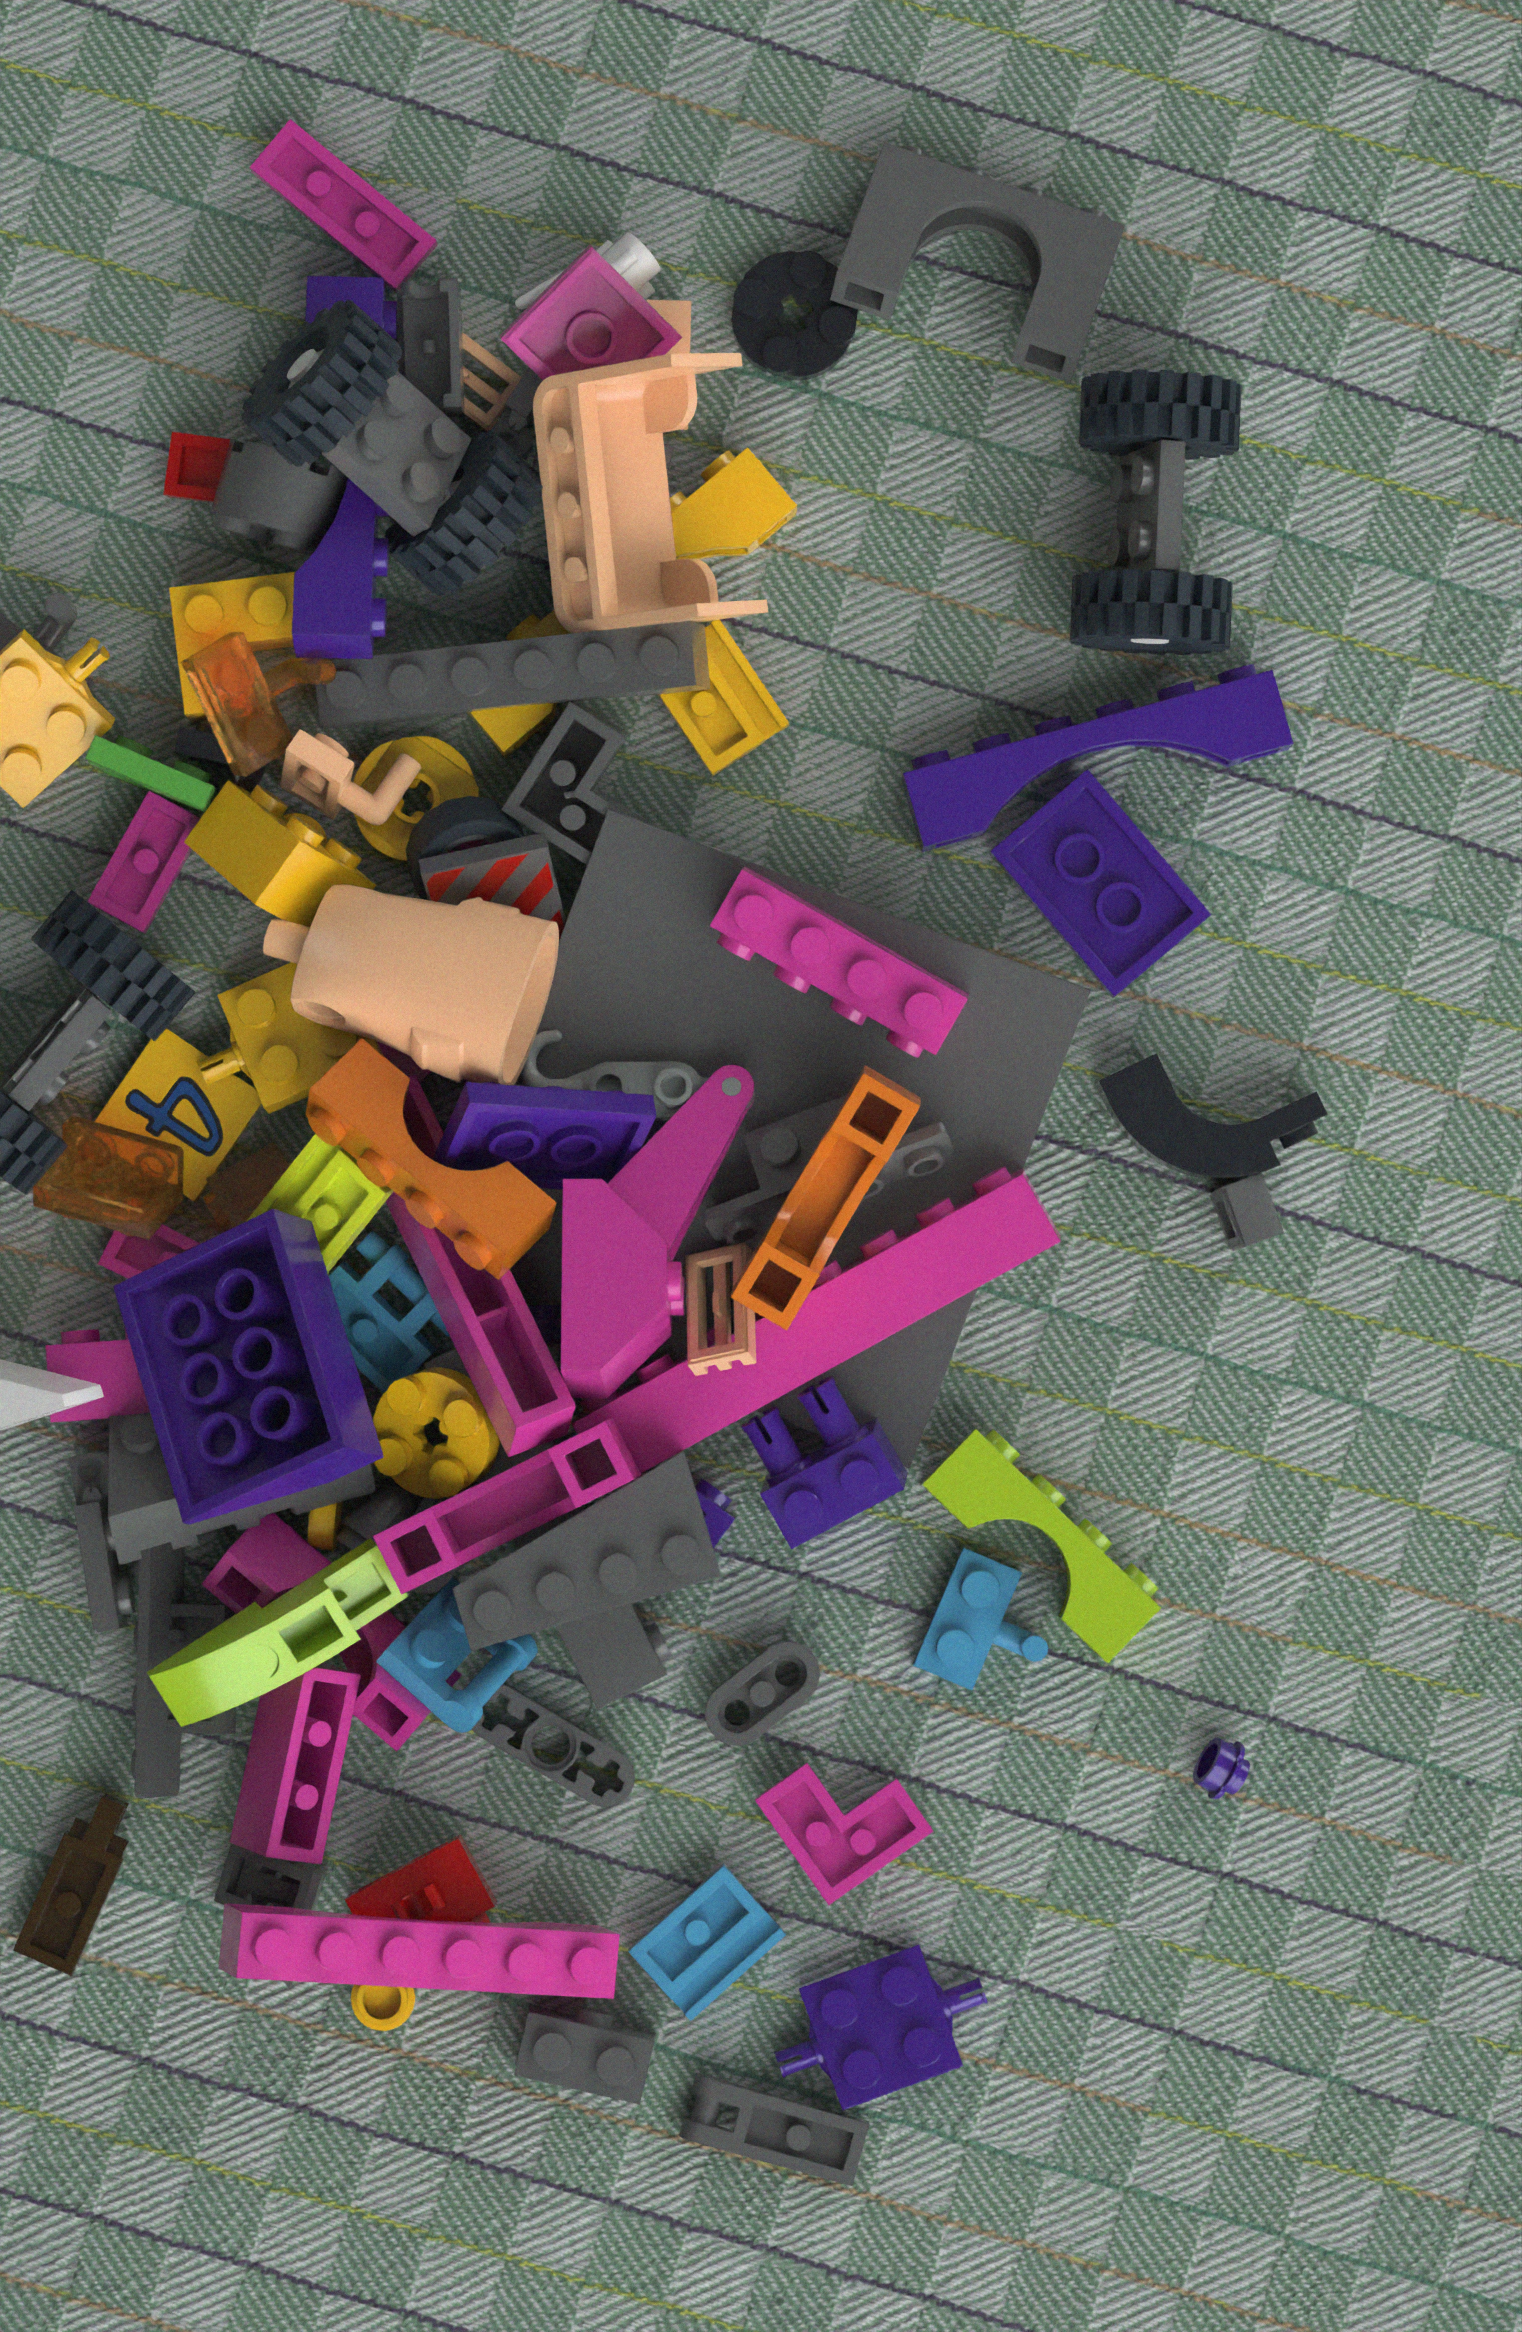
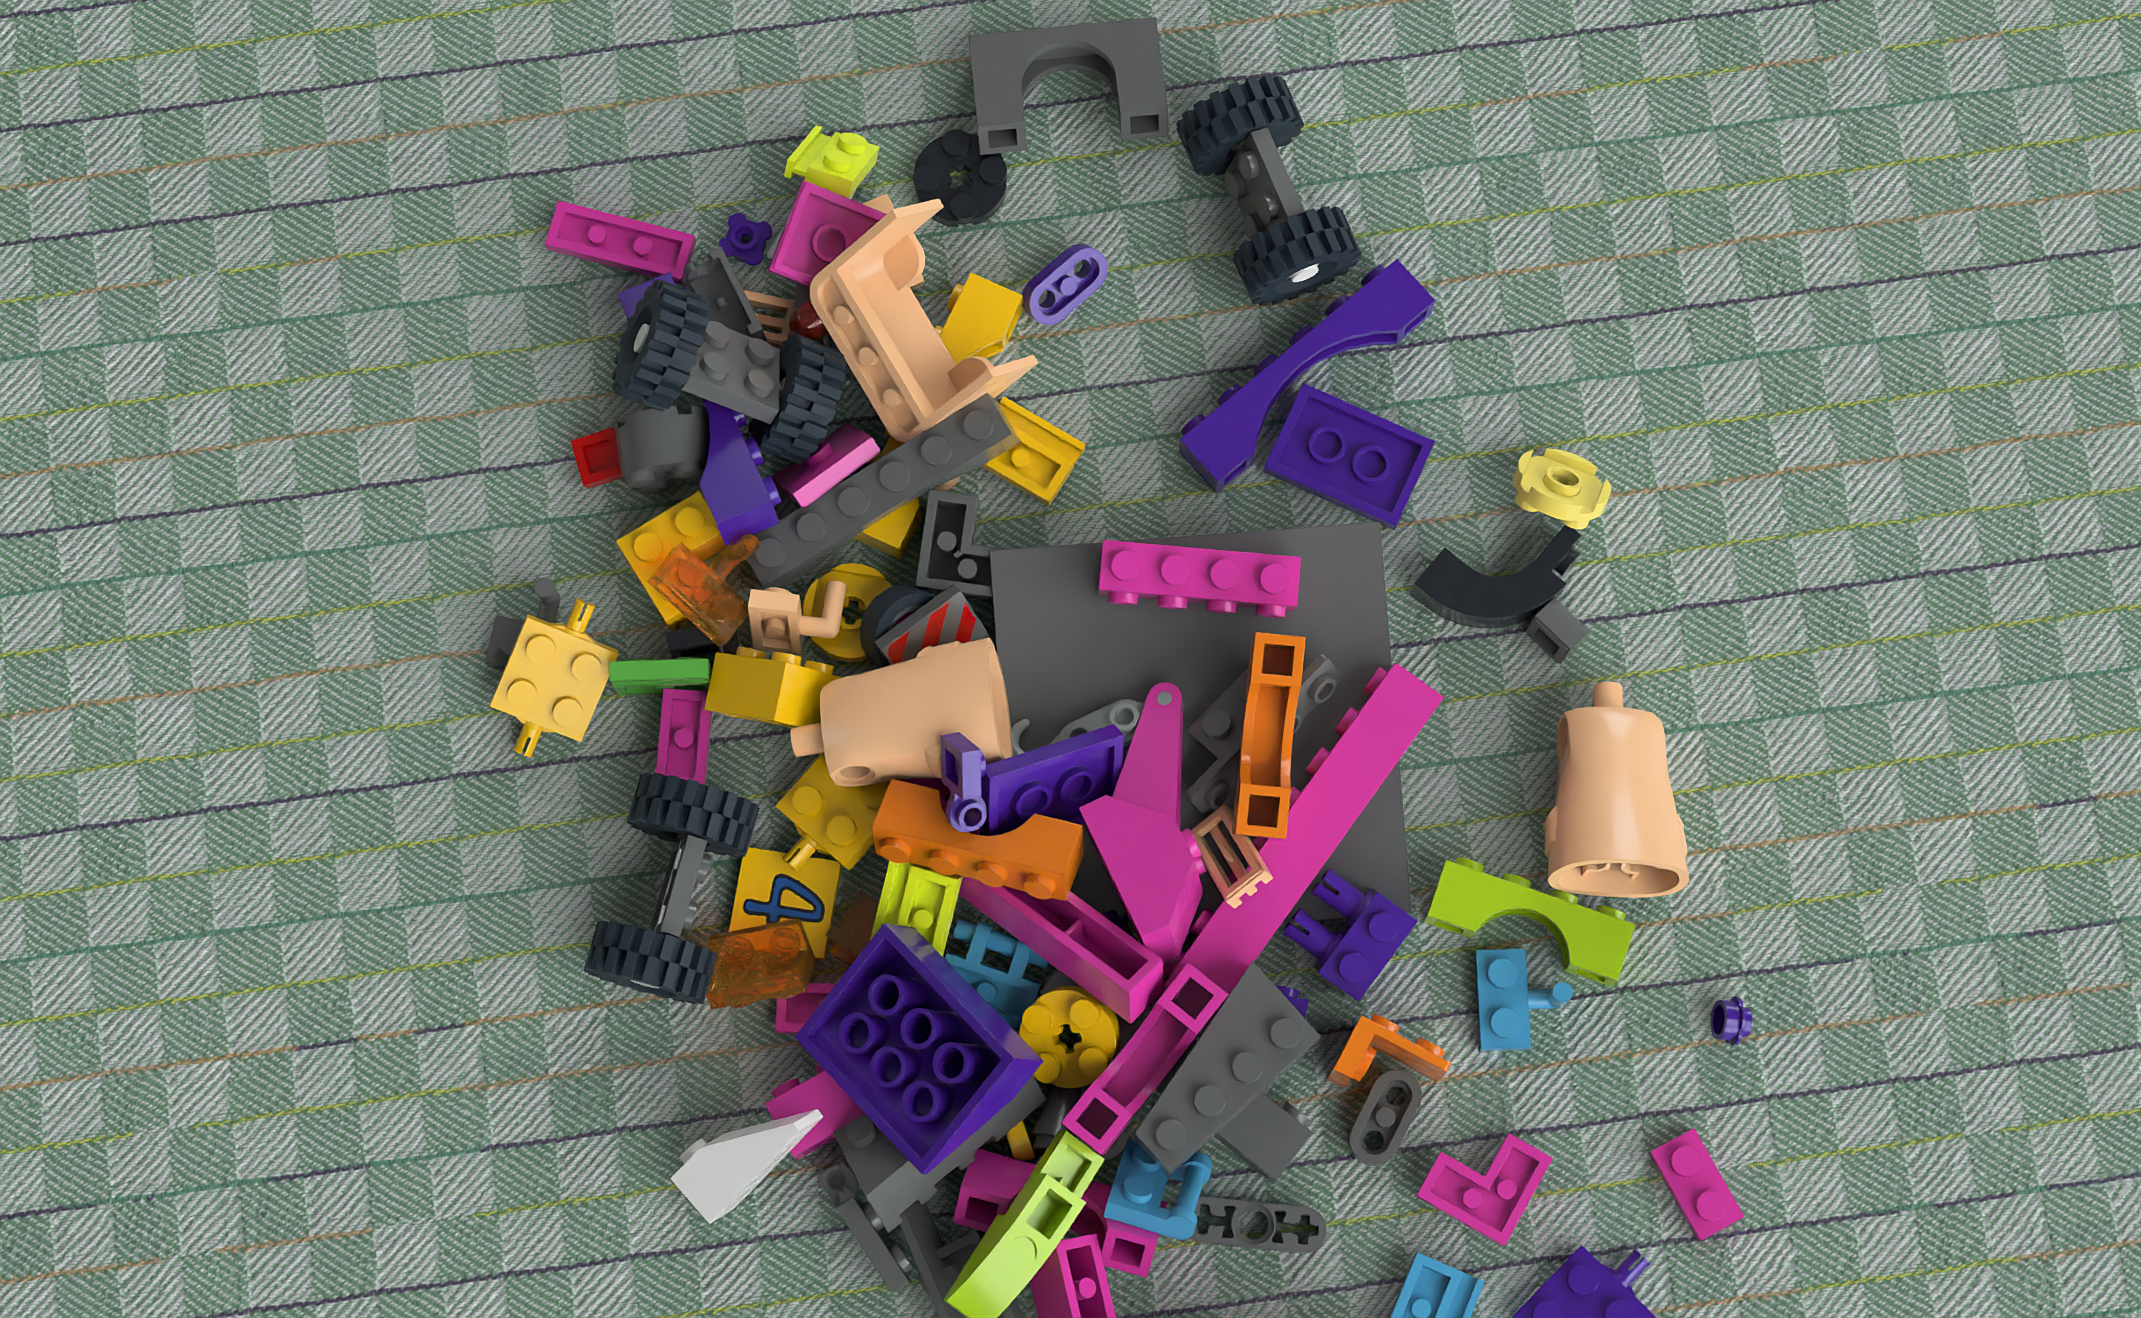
camera: 15 degrees left, 10 degrees down
(440, 1079) = (962, 772): none -> dark purple plate
(478, 611) = (831, 463): none -> dark pink plate
(497, 290) = (746, 252): none -> dark purple plate
(520, 421) = (807, 322): none -> clear red hinge
(645, 226) = (833, 162): none -> neon yellow plate
(759, 1612) = (1382, 1036): none -> orange bracket
(857, 511) = (1064, 287): none -> plate
(1087, 1936) = (1696, 1185): none -> dark pink plate
(1206, 1453) = (1614, 804): none -> light nougat torso
(1332, 1071) = (1560, 487): none -> light yellow plate

